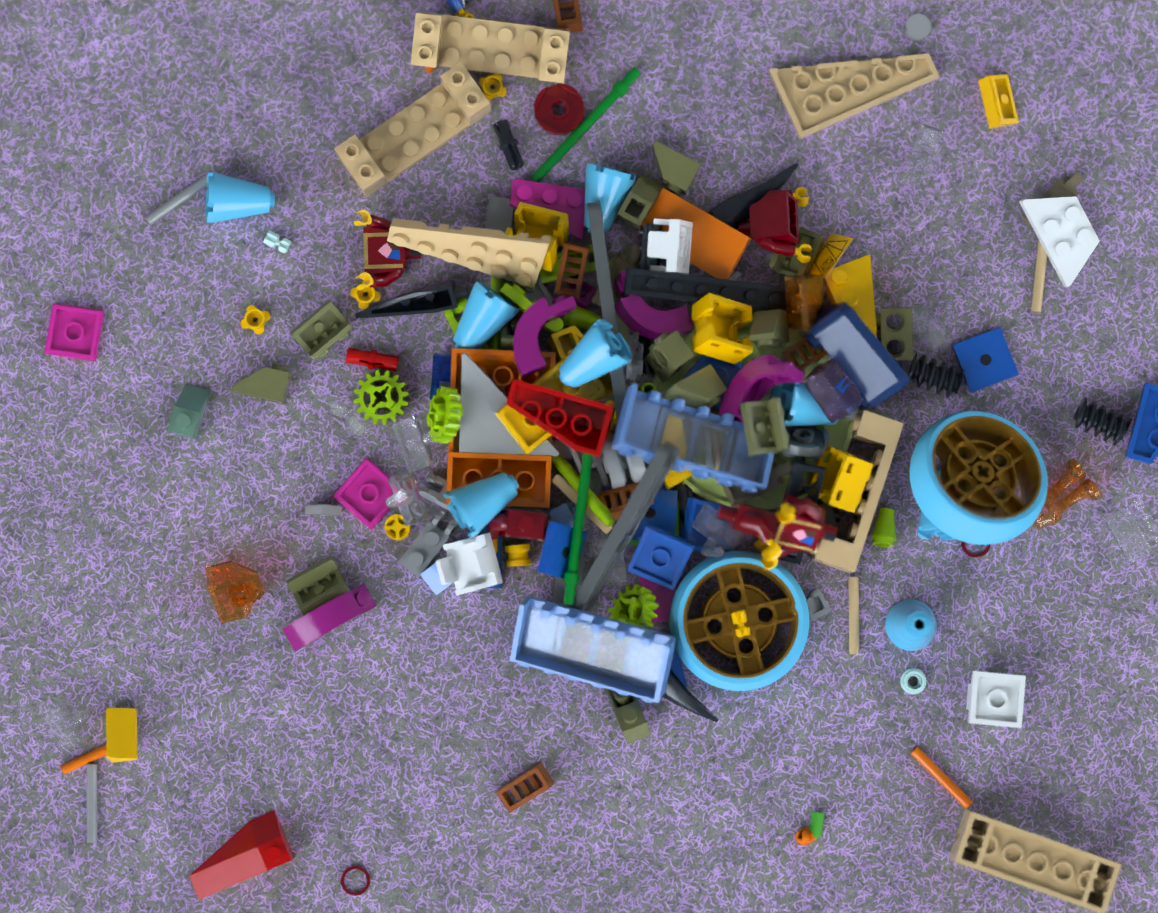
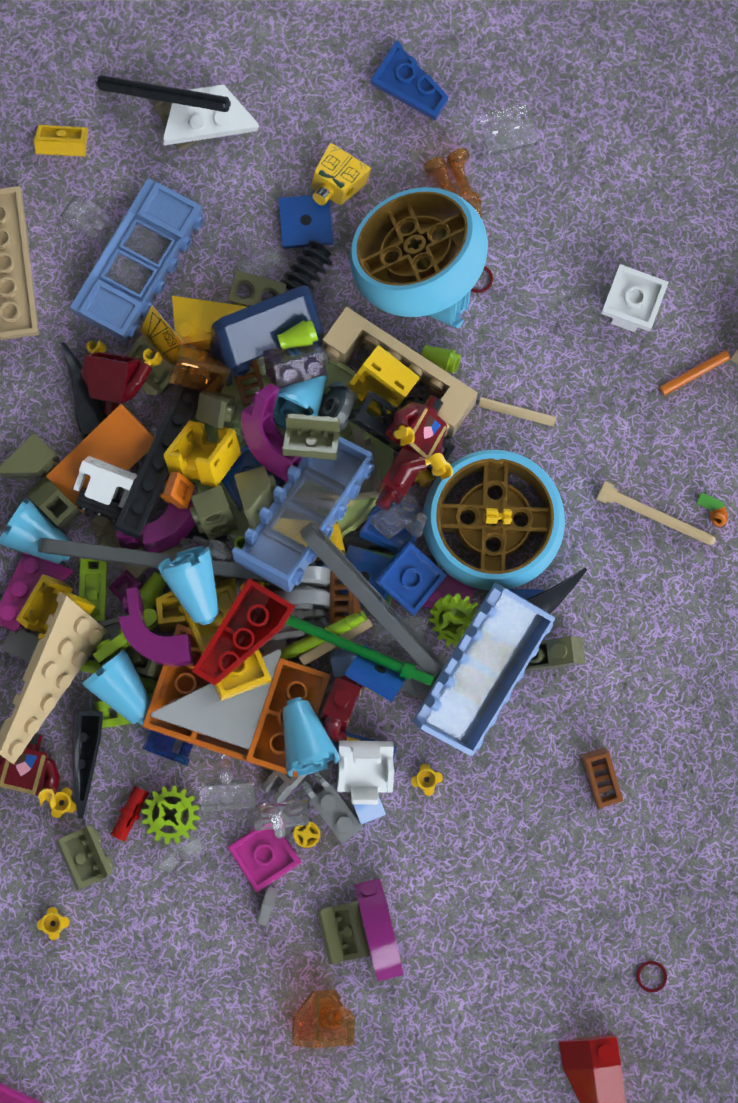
camera: 75 degrees left, 5 degrees down
(189, 411) = (127, 1018): sand green slope -> none
(266, 384) = (122, 930): olive slope -> none
(444, 415) = (207, 752): lime gear -> none
(485, 620) = (434, 778): none -> yellow plate
(518, 555) = (369, 720): yellow wheel -> none
(583, 261) = (95, 595): dark orange slope -> none
(679, 316) = (178, 490): none -> orange tile
(797, 726) = (609, 494): none -> tan piece
(816, 604) = (497, 442): light grey tile -> none
(858, 386) = (297, 336): none -> lime cone
(898, 211) = (138, 260): none -> medium blue window
(901, 626) = (541, 359): medium azure cone -> none
(920, 677) = (595, 365): light aqua plate -> none
(1037, 378) = (338, 176): none -> yellow torso
(1039, 279) = (243, 150): tan bar -> none
(1070, 186) = (163, 93): none -> black axle
(1101, 421) = (395, 129): black piece -> none

